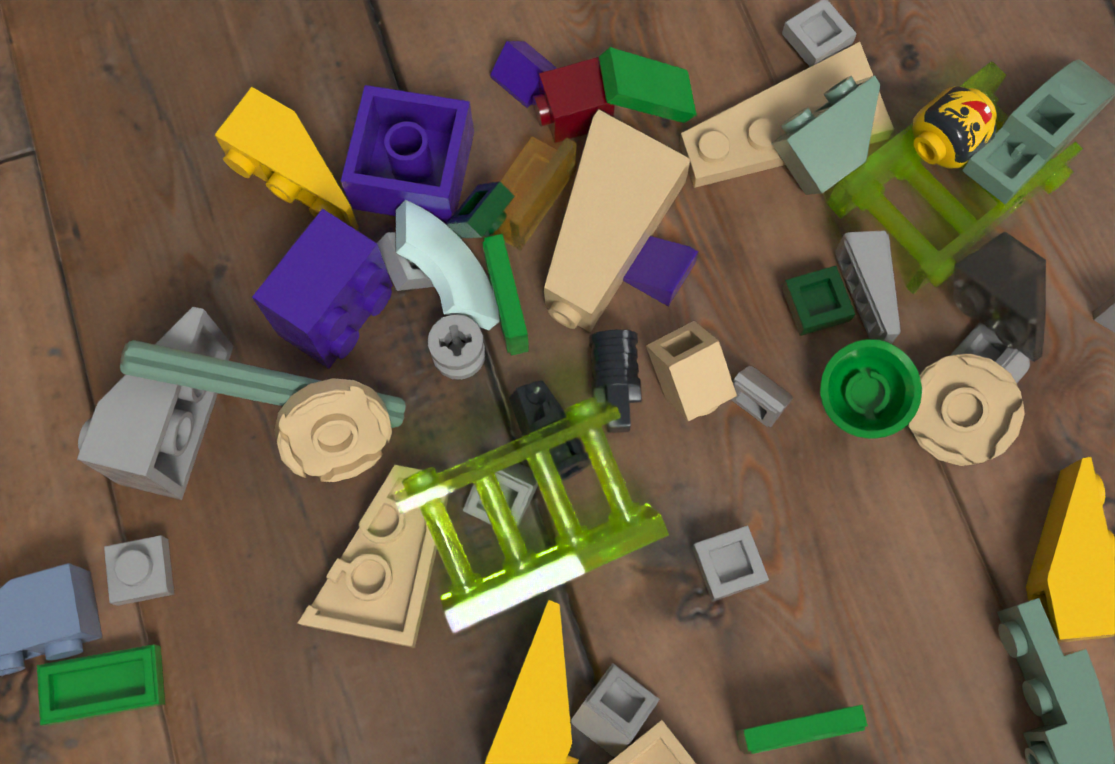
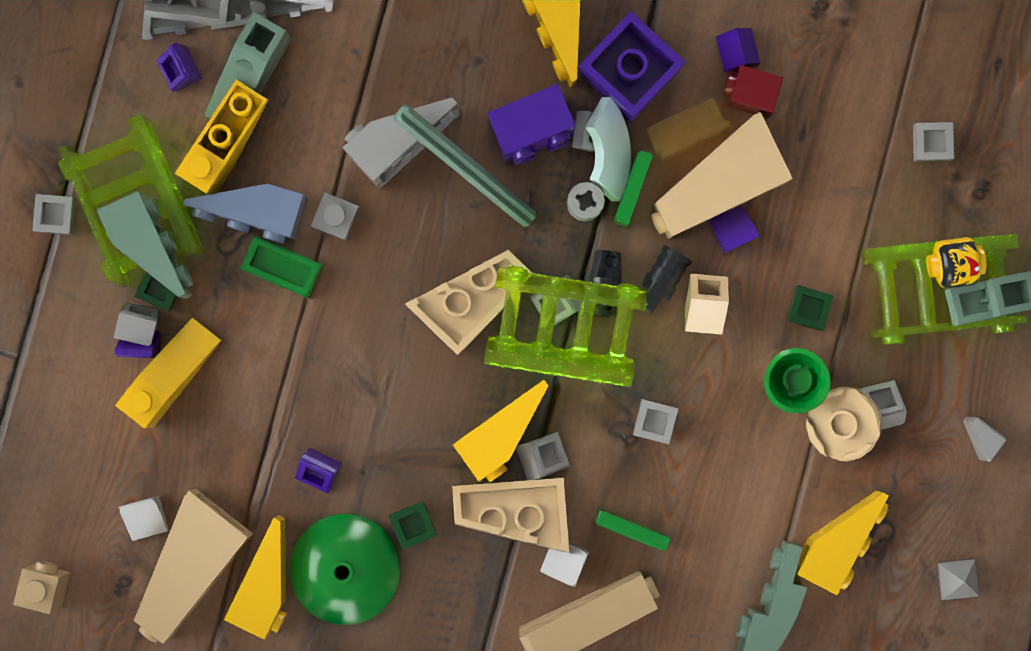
camera: 30 degrees right, 15 degrees up
(332, 430) = (486, 210): tan tile -> none
(482, 211) = (650, 131): dark green plate -> none
(647, 85) = (801, 112): green tile -> none
(742, 136) = (882, 188): tan wing -> none
(760, 396) = (739, 340): light grey slope -> none
(833, 139) = (884, 220): sand green slope -> none
(870, 279) = (849, 312): light grey slope -> none
(1006, 292) = (918, 375): clear smoke slope -> none

